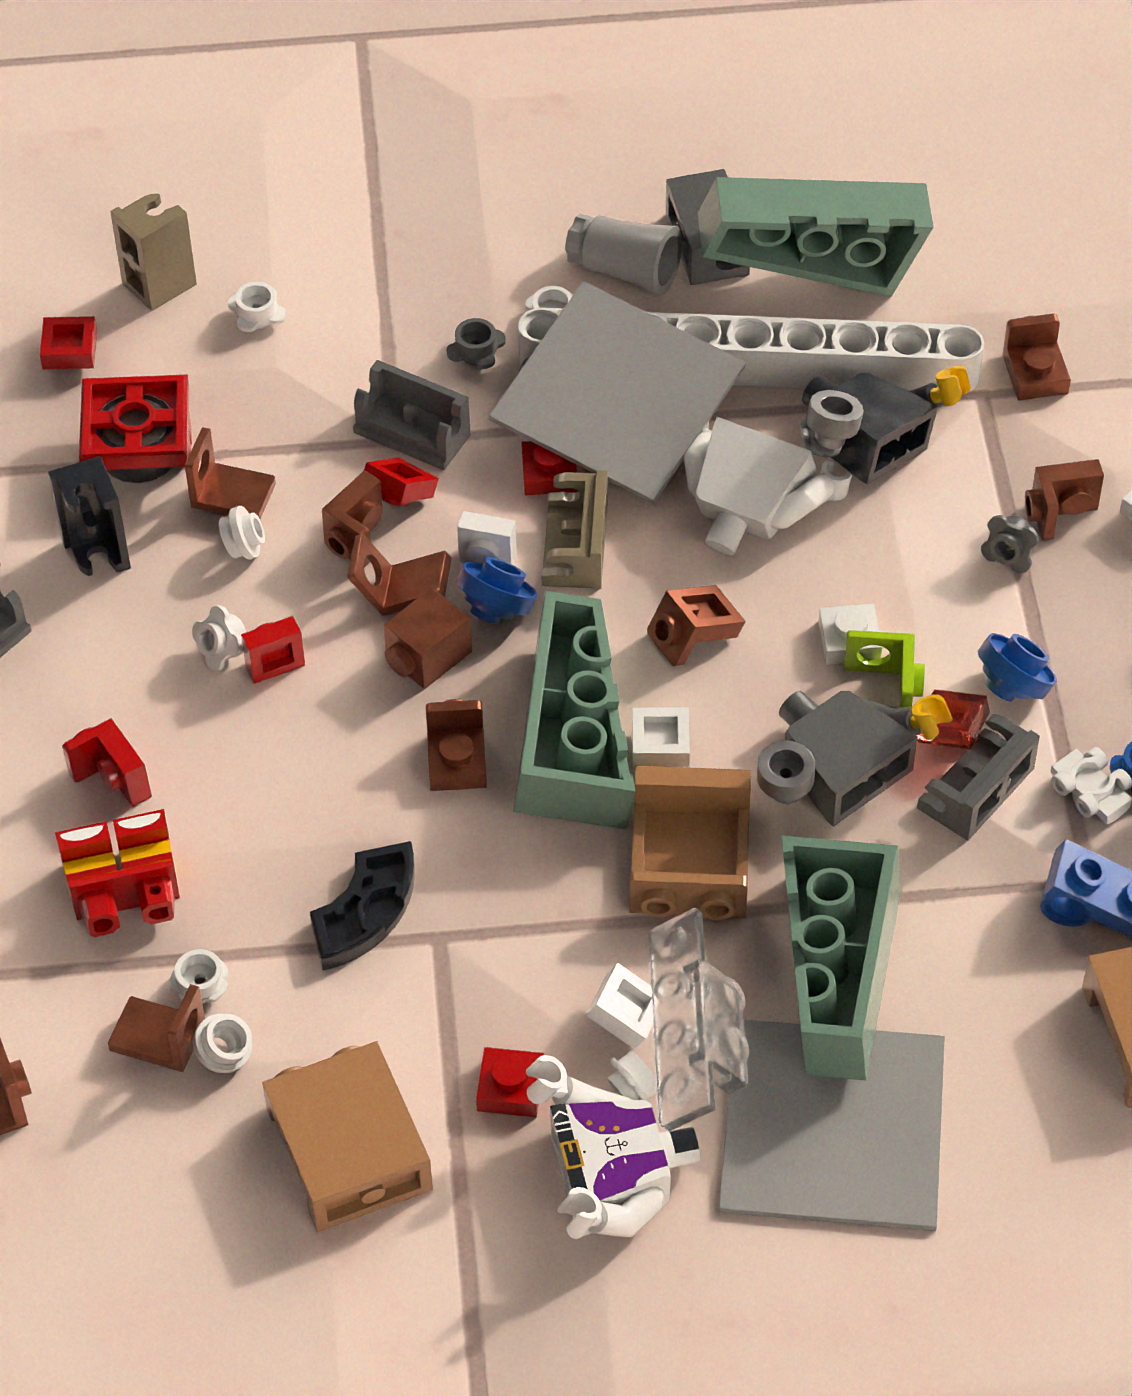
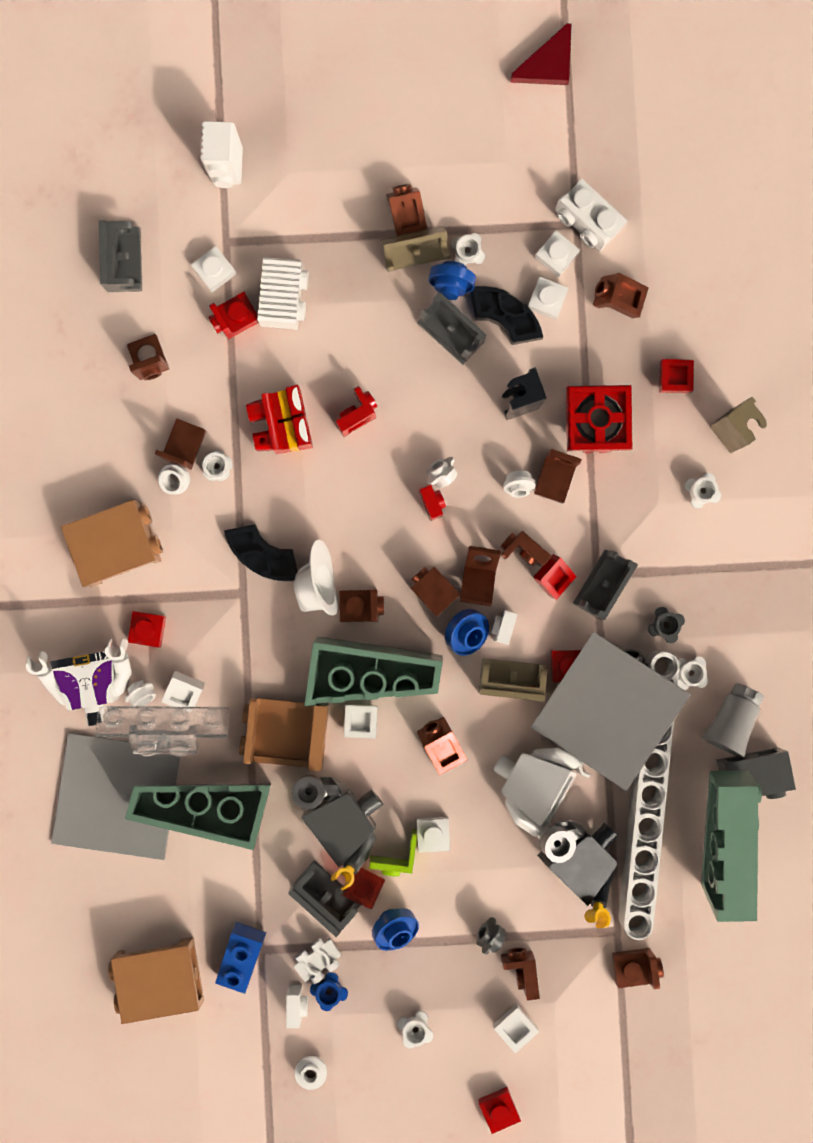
camera: 85 degrees right, 35 degrees up
(419, 805) = (315, 582): none -> white piece

